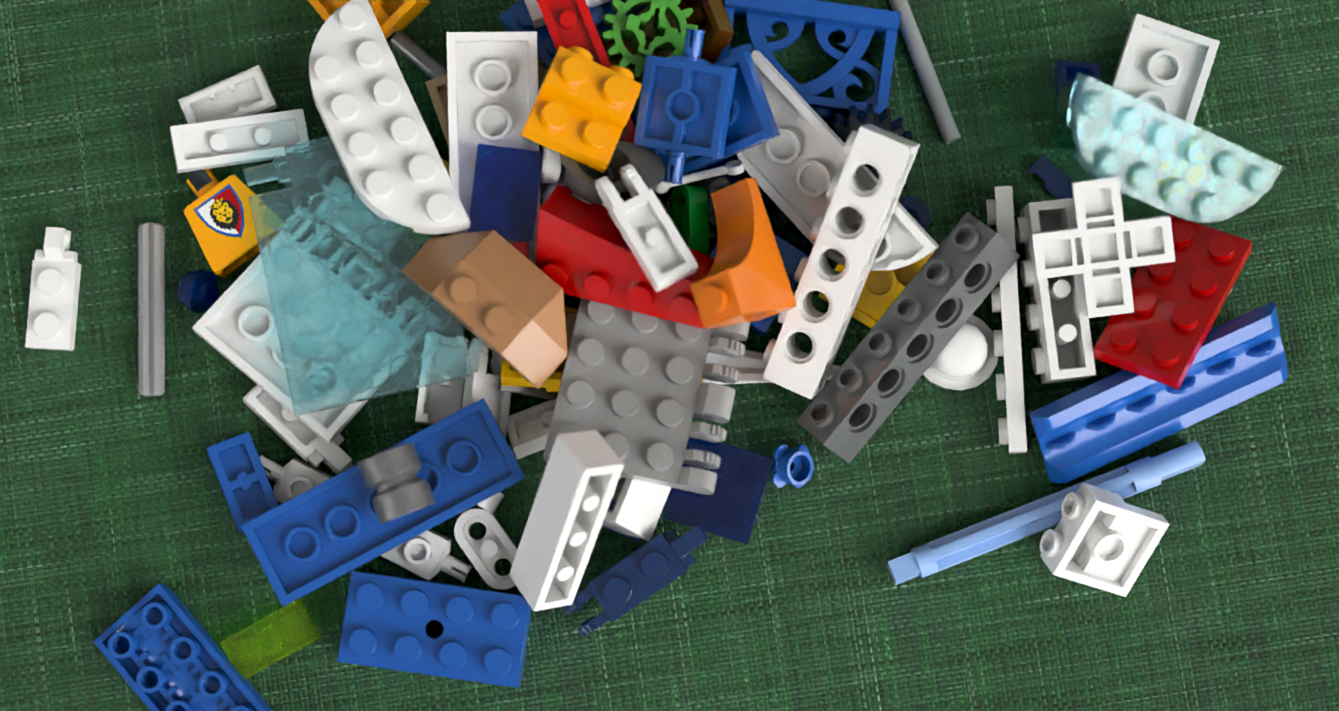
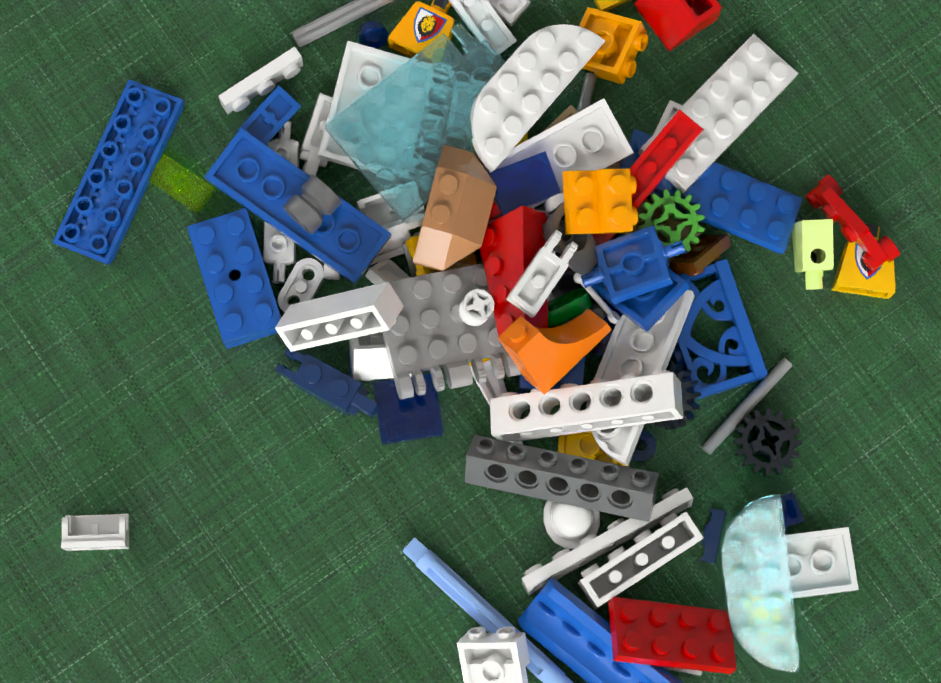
camera: 60 degrees right, 5 degrees down
(187, 466) = (261, 81): none -> white plate
(641, 325) = (479, 301): none -> white wheel
(791, 466) = (447, 455): blue plate -> none
(965, 58) = (763, 431): none -> black gear
(1103, 247) = (679, 568): white plate -> none

